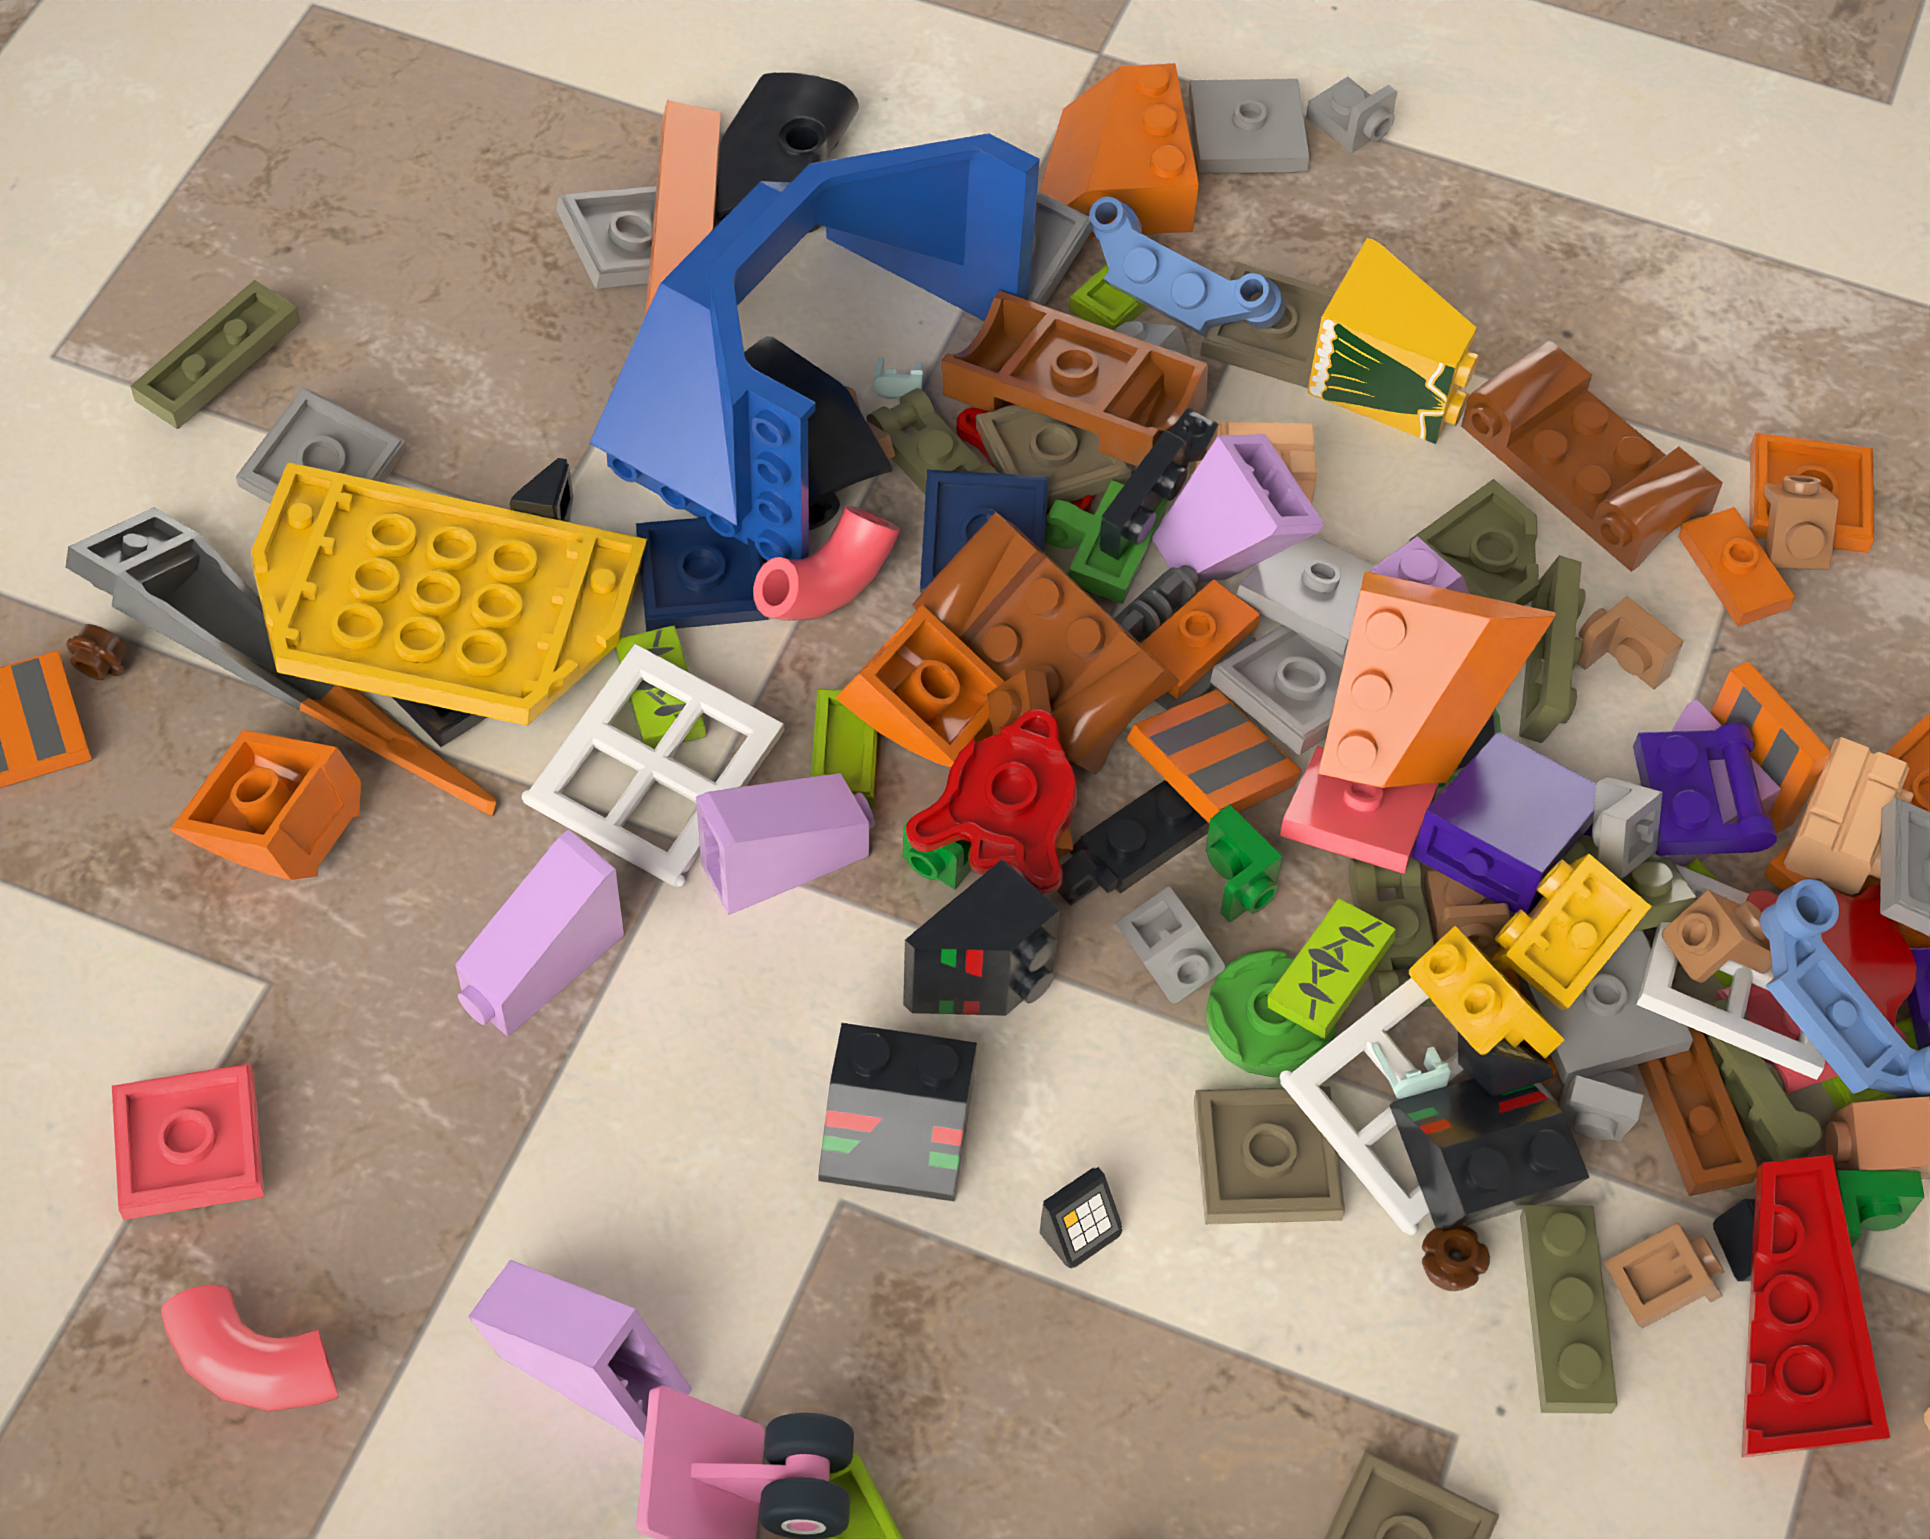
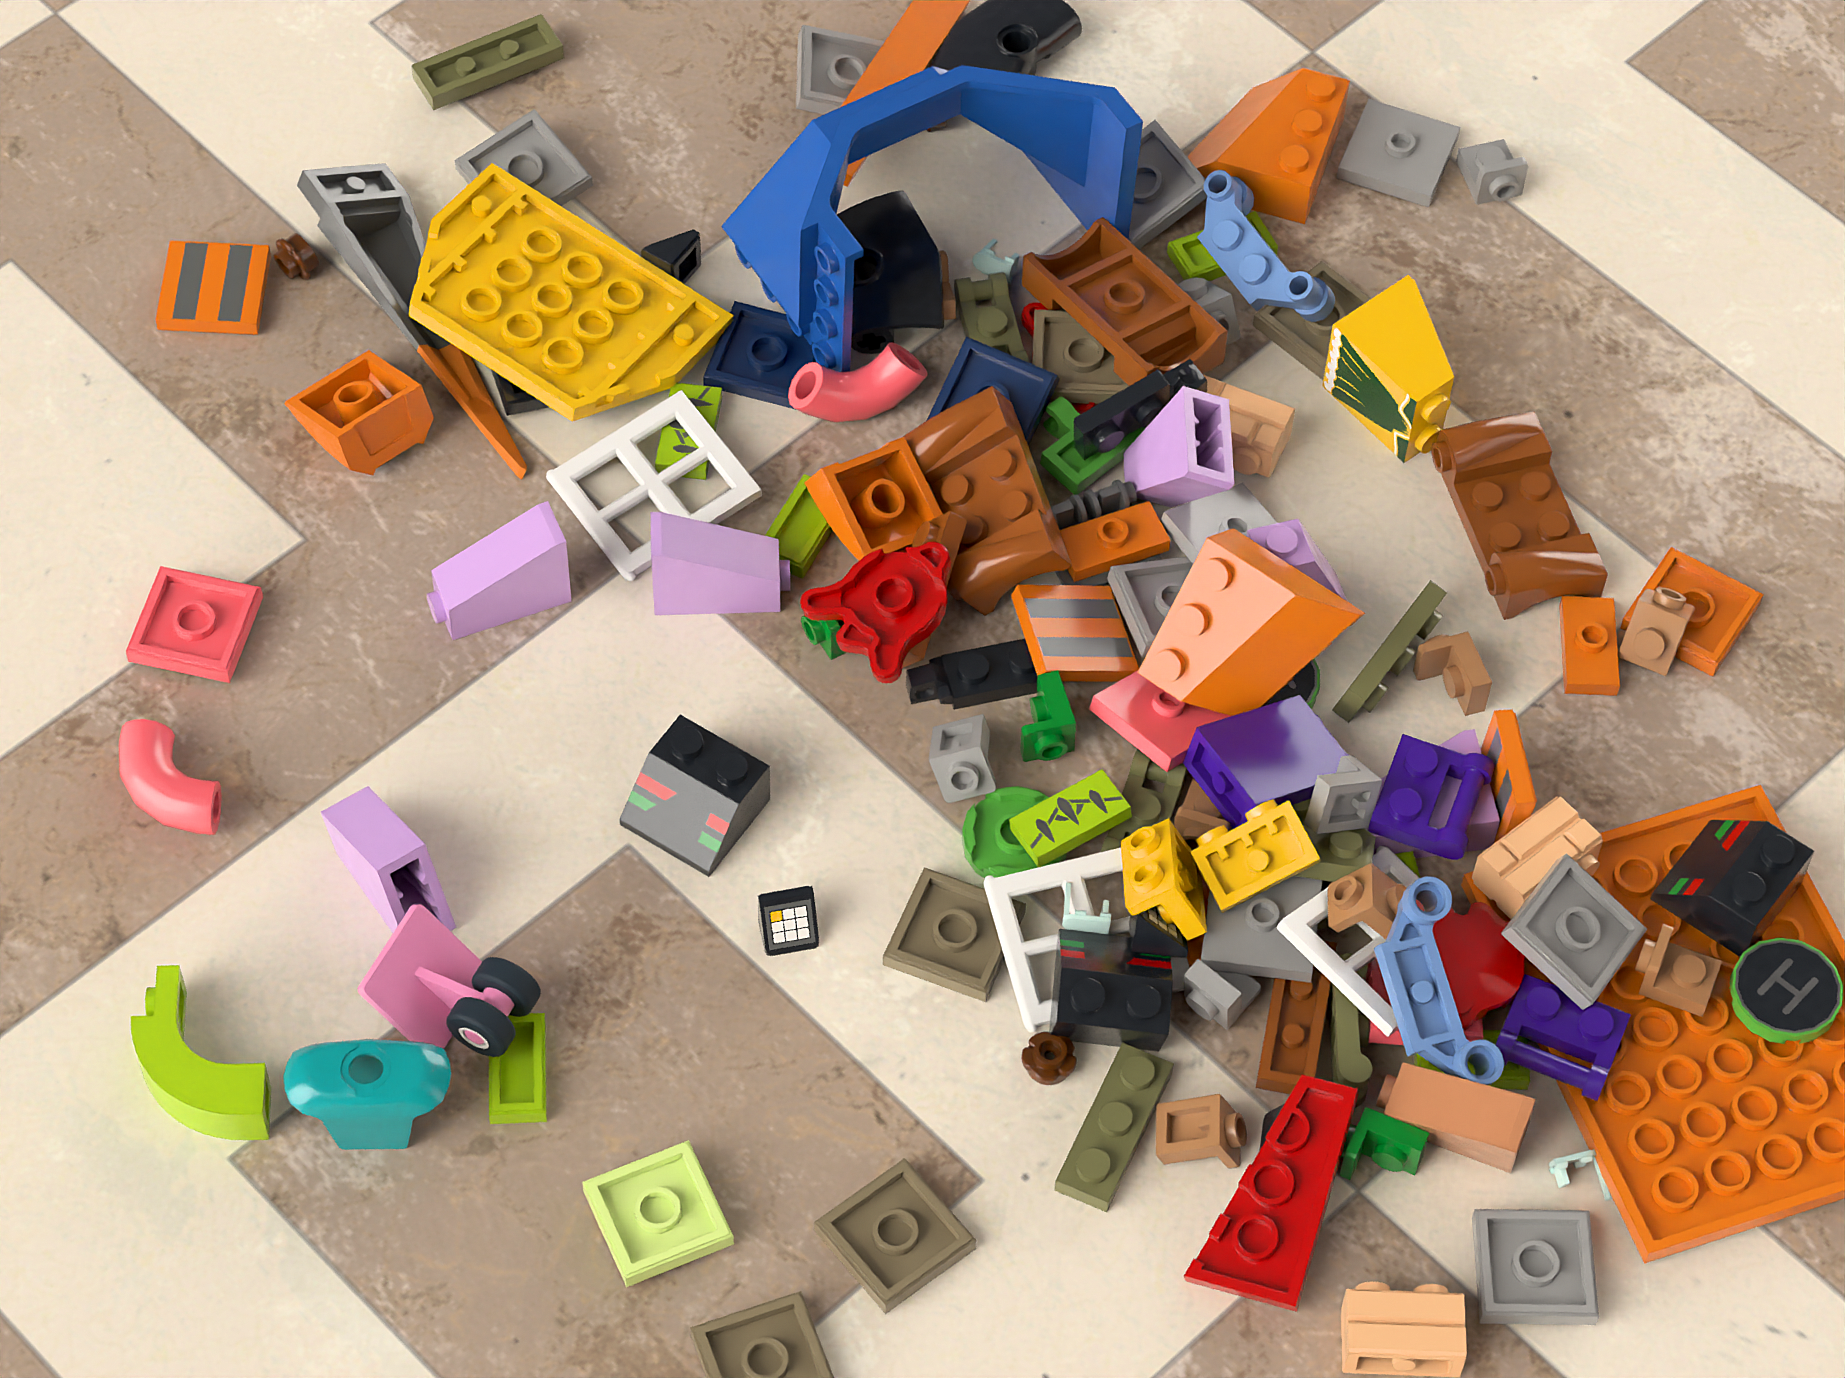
camera: 25 degrees right, 0 degrees up
(983, 949) = (811, 703): black slope -> none
(1489, 544) = (1383, 559): olive plate -> none

